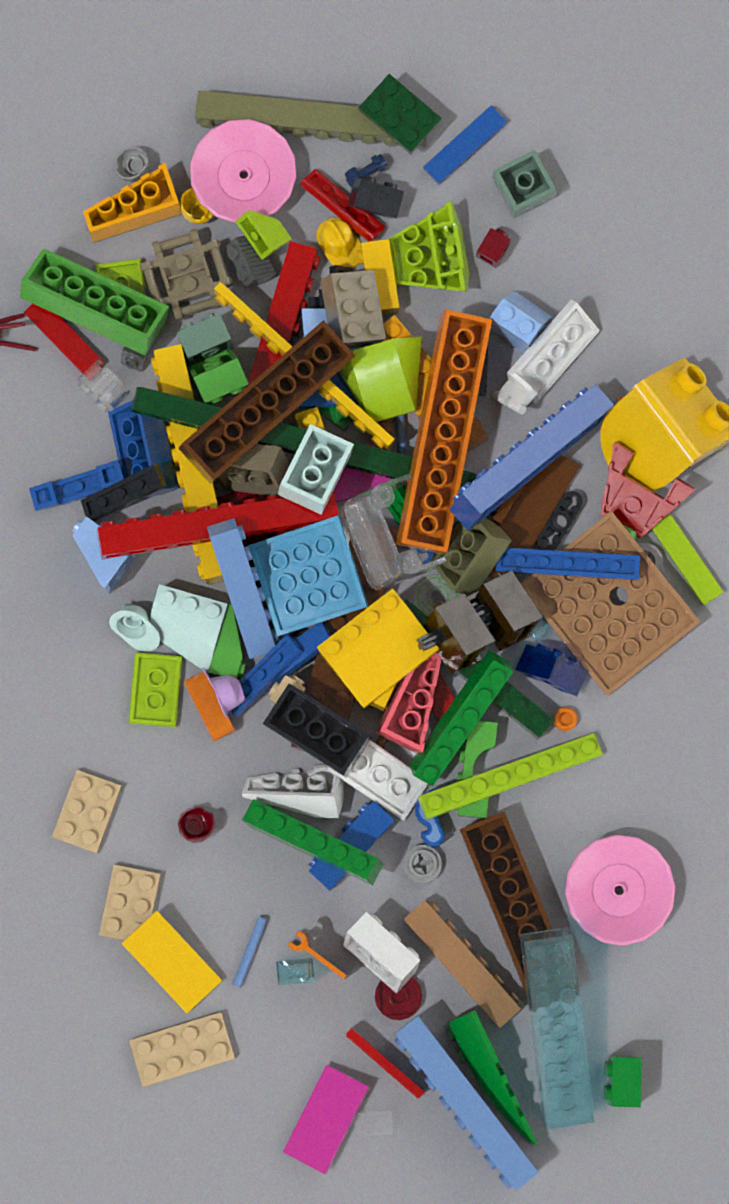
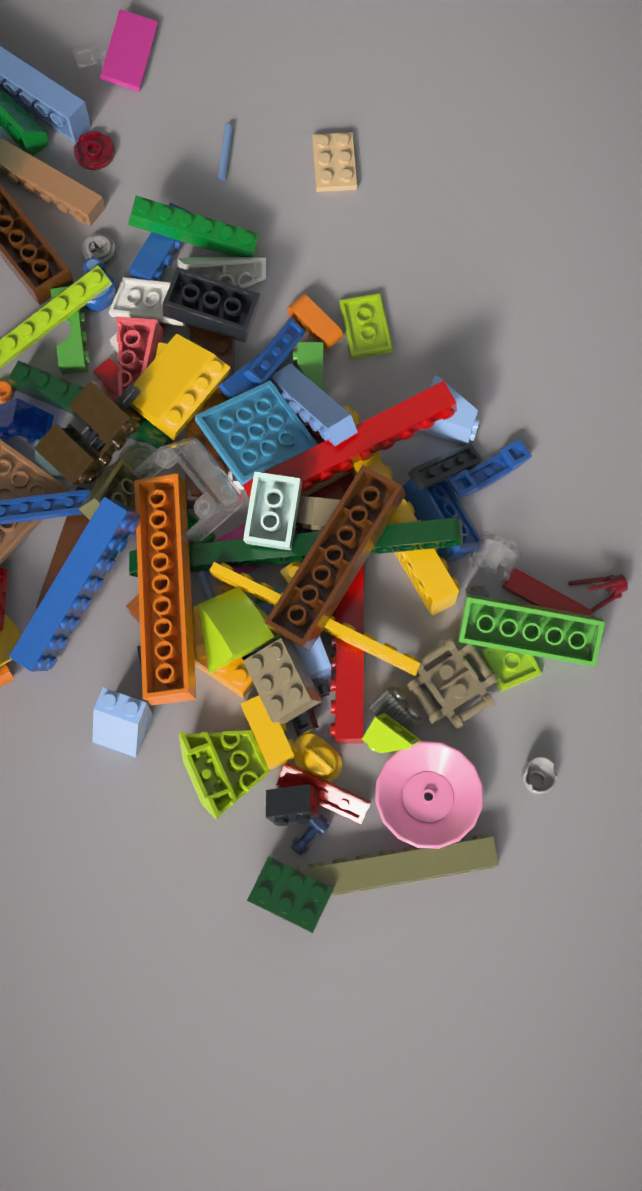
camera: 160 degrees right, 10 degrees down
(86, 811) = (392, 220): tan plate -> none
(134, 206) = (517, 739): light orange wedge -> none
(134, 627) = (400, 369): light aqua piece -> none
(171, 961) = (286, 126): yellow tile -> none
(182, 1049) = (259, 72): tan plate -> none
(188, 623) = (355, 383): light aqua wedge -> none
(192, 209) = (468, 746): yellow hair -> none
(196, 824) = (297, 227): dark red hair -> none
(204, 338) = (415, 623): sand green brick -> none
(218, 376) = (392, 587): bright green brick -> none
(227, 691) = (304, 328): lavender piece -> none
(278, 688) = (250, 347): tan bracket -> none
(295, 971) = (181, 140): clear light blue slope -> none
(304, 946) = (165, 152): orange flag -> none
(381, 951) = (112, 165): white brick -> none
(382, 1061) = (96, 99): red tile -> none
(461, 717) = (87, 354): green brick -> none
(464, 145) = (219, 889): blue tile -> none
(493, 247) = (164, 791): dark red brick -> none
(524, 183) = (148, 860): sand green brick -> none
(547, 358) = (99, 671): white hinge -> none
(563, 504) = (32, 567): black beam -> none

